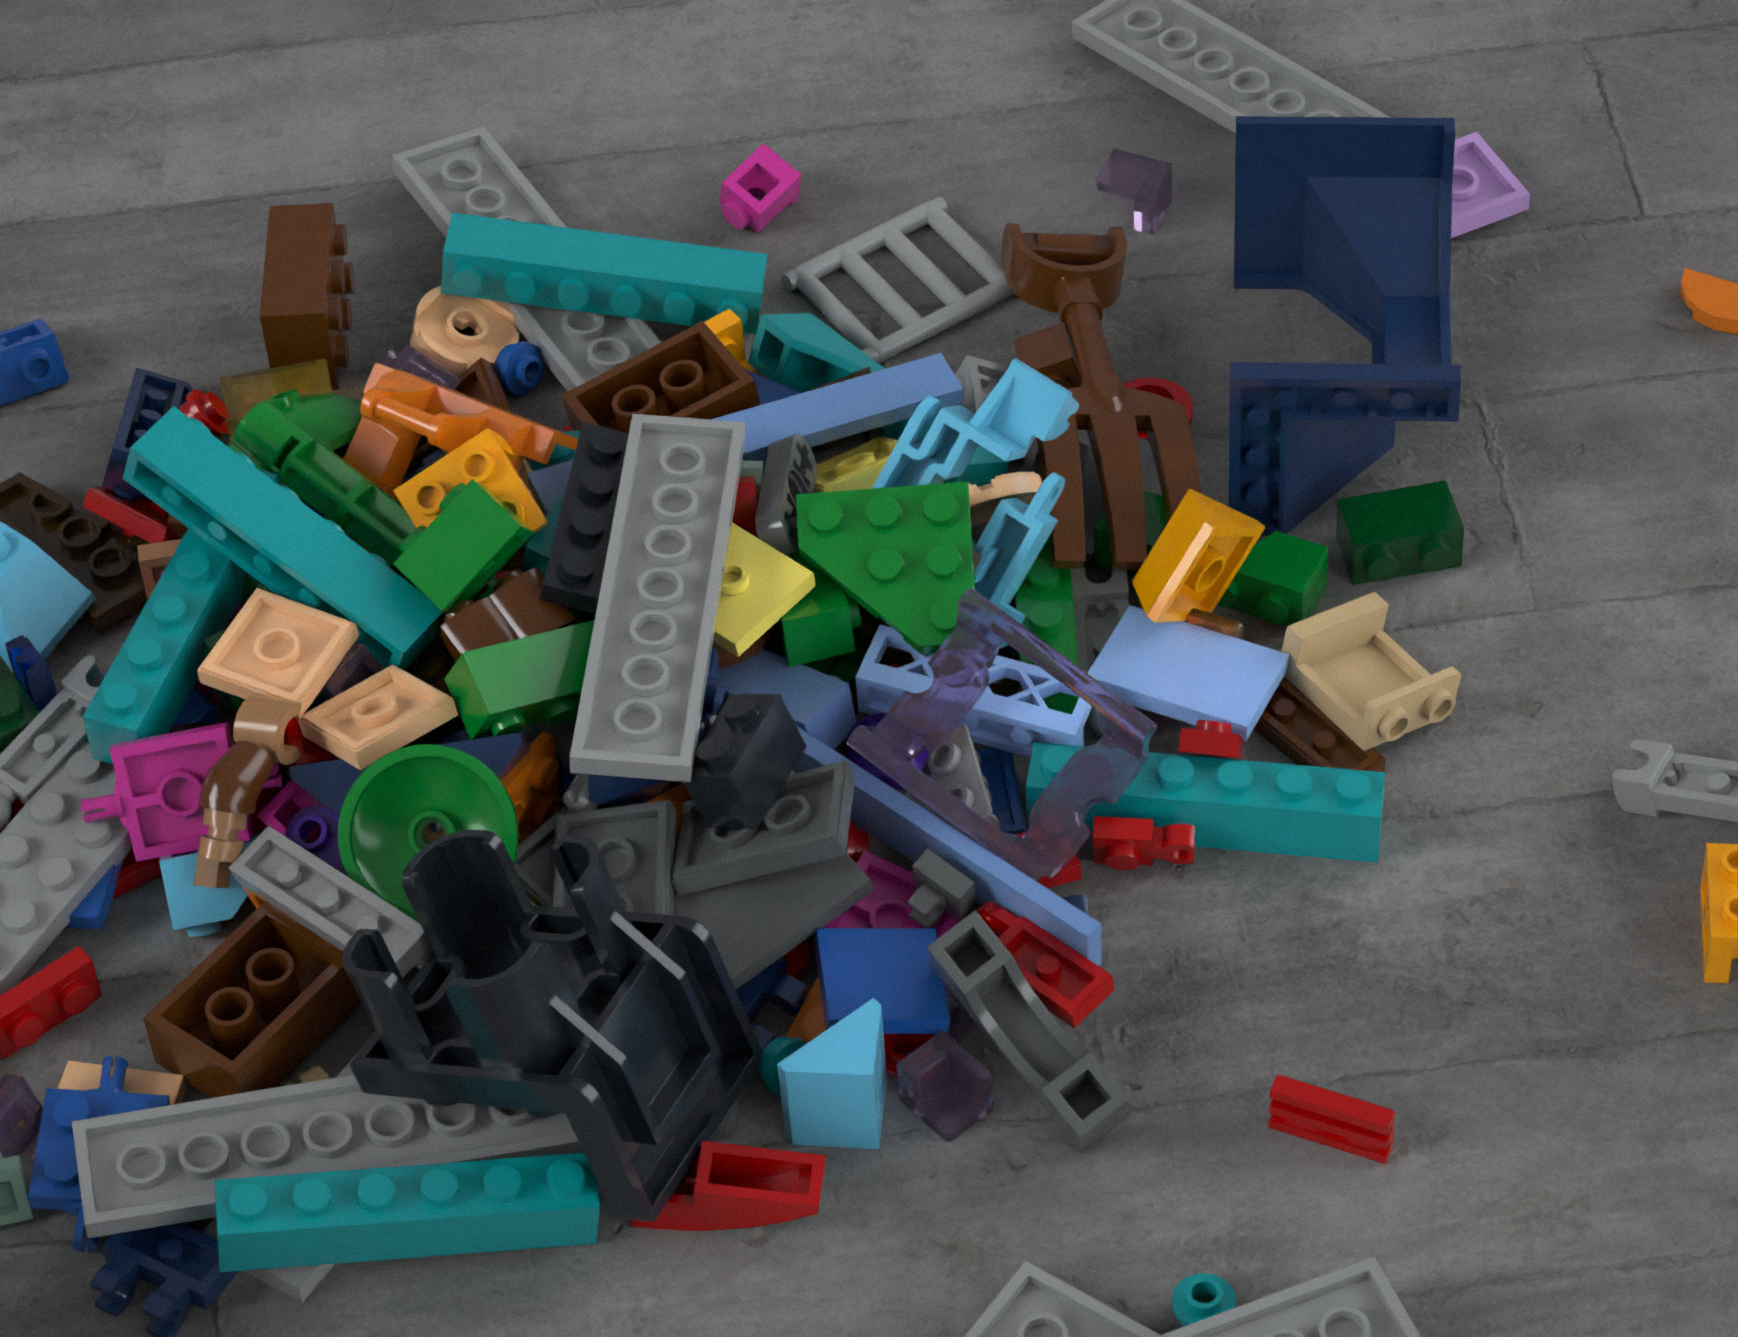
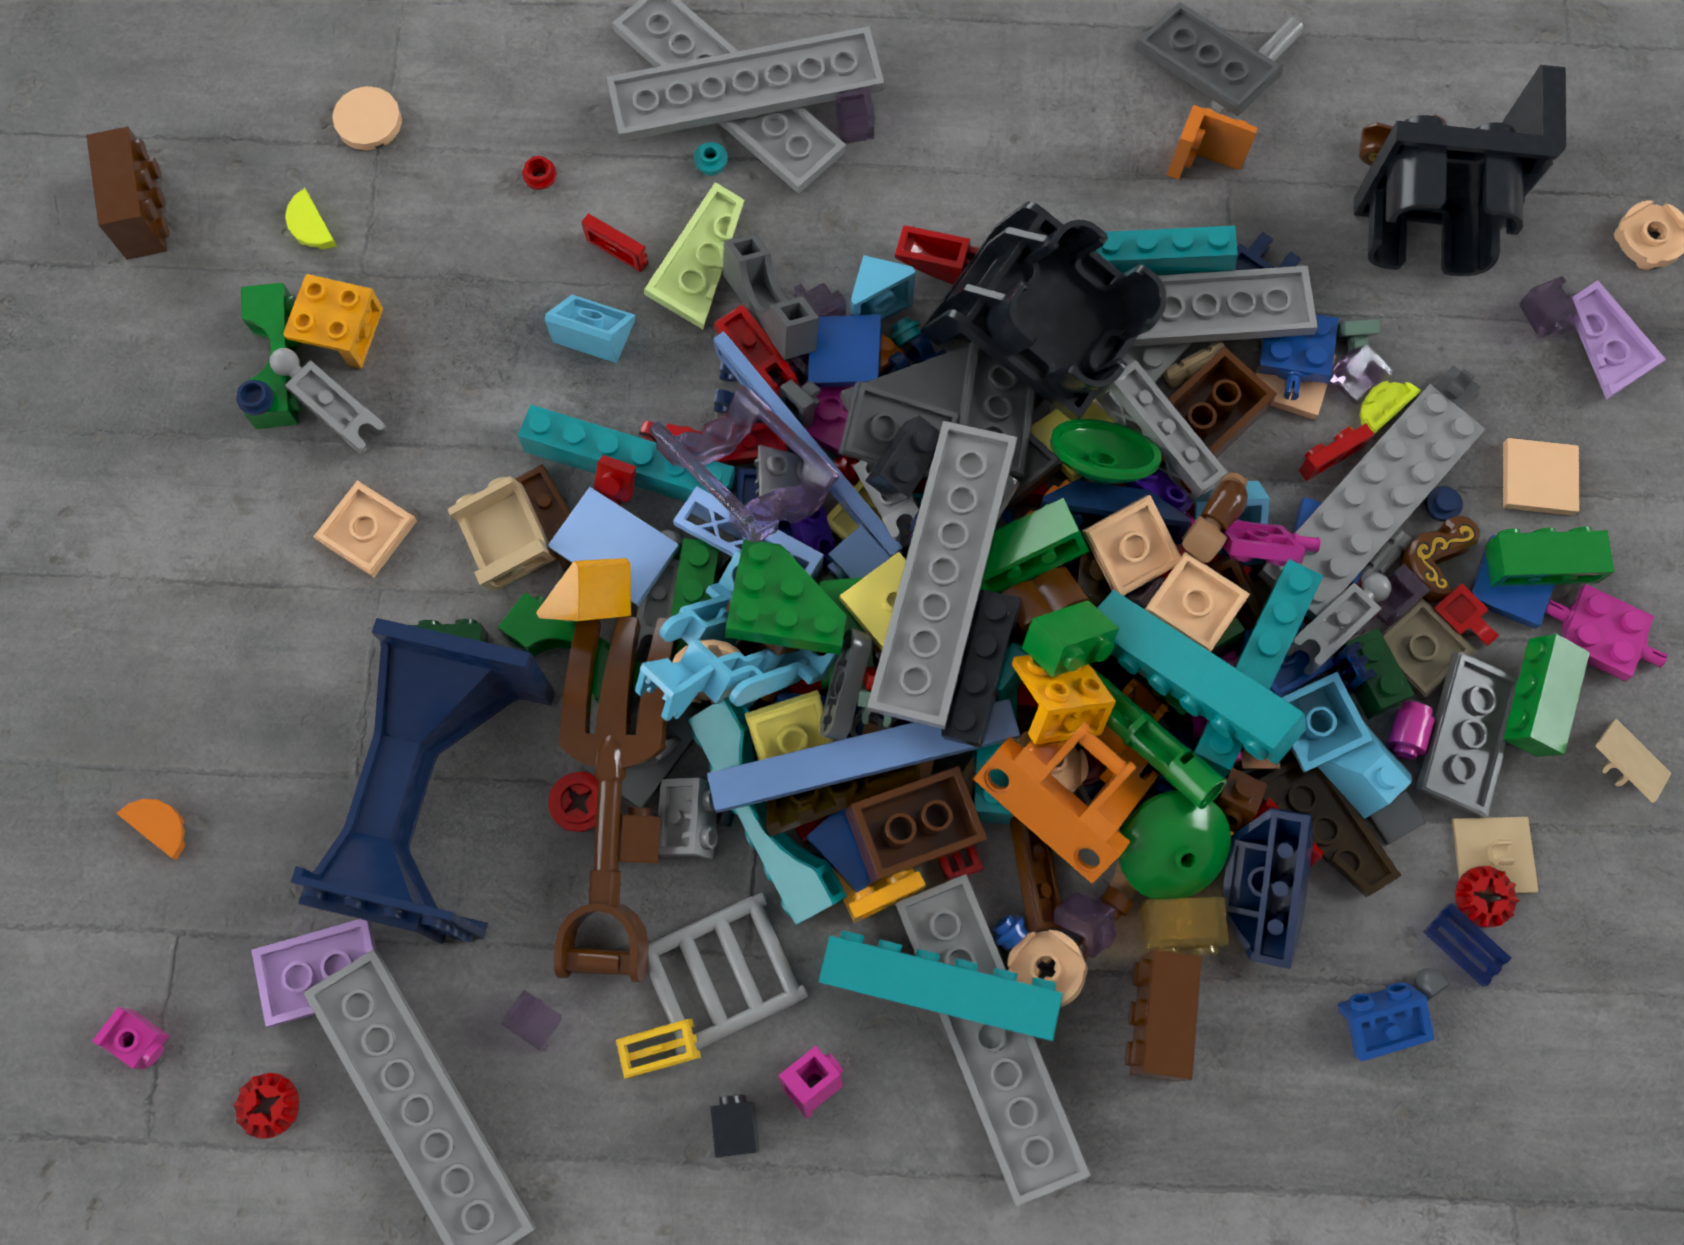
camera: 175 degrees left, 25 degrees up
(80, 618) = (1330, 722): none -> medium azure slope
(208, 410) = (1240, 900): red plate -> none
(844, 120) = (734, 1126): none -> black brick
(965, 193) = (688, 1040): none -> yellow tile
(1179, 1123) = (695, 262): none -> yellowish green wing
(1331, 980) = (589, 327): none -> medium azure slope
(1447, 94) = (283, 1111): none -> red gear
(1515, 1211) = (537, 165): none -> red plate
(1591, 671) = (365, 528): none -> light nougat tile
(1642, 103) = (118, 1031): none -> dark pink brick

